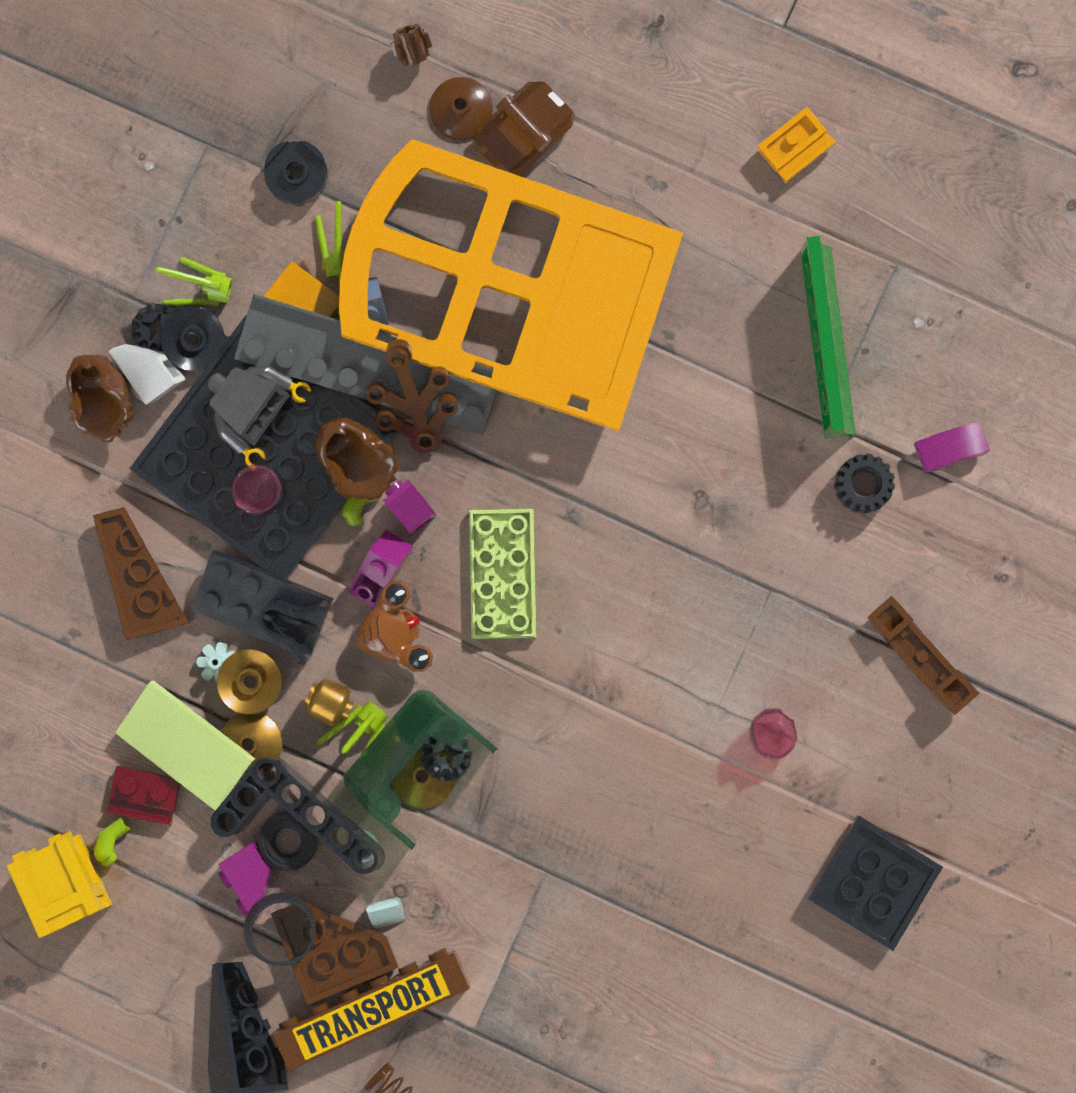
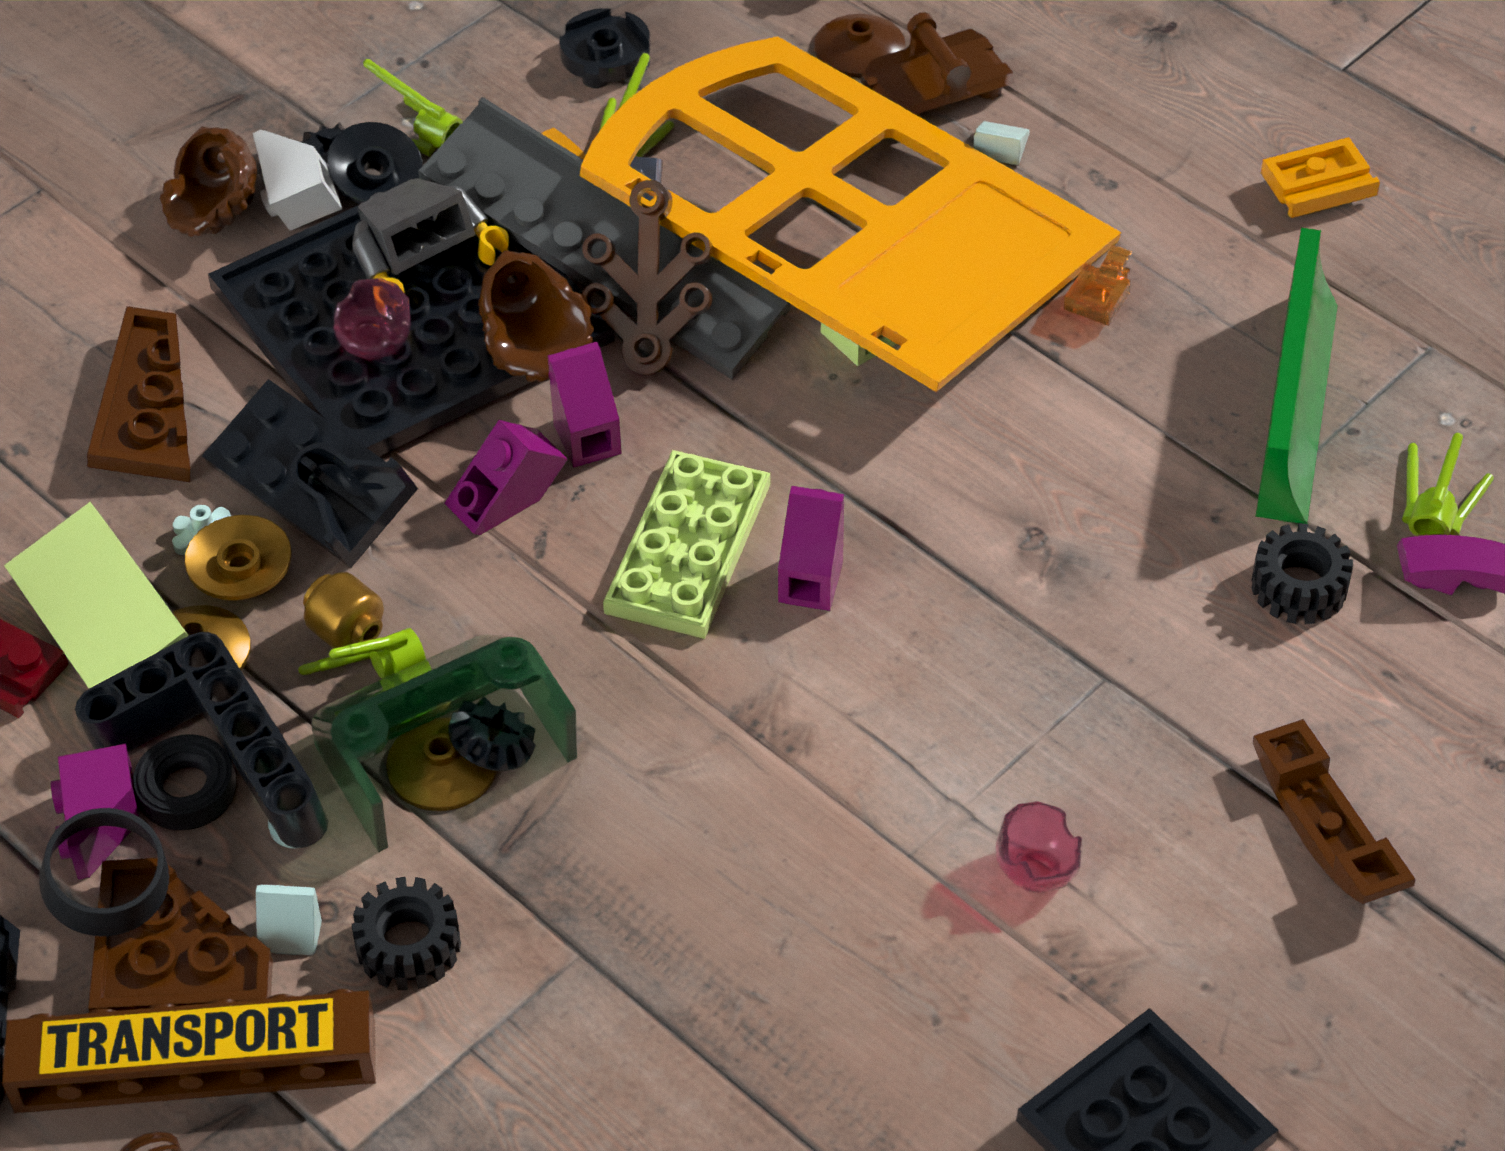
camera: 15 degrees right, 35 degrees down
(352, 510) = (515, 397): lime arm -> none
(390, 630) = (481, 548): dark orange head -> none
(432, 902) = (411, 960): none -> black tyre
(582, 571) = (811, 548): none -> magenta slope
(583, 173) = (1001, 142): none -> light aqua slope
(685, 293) = (1102, 290): none -> clear orange plate
(931, 409) = (1436, 509): none -> lime plant

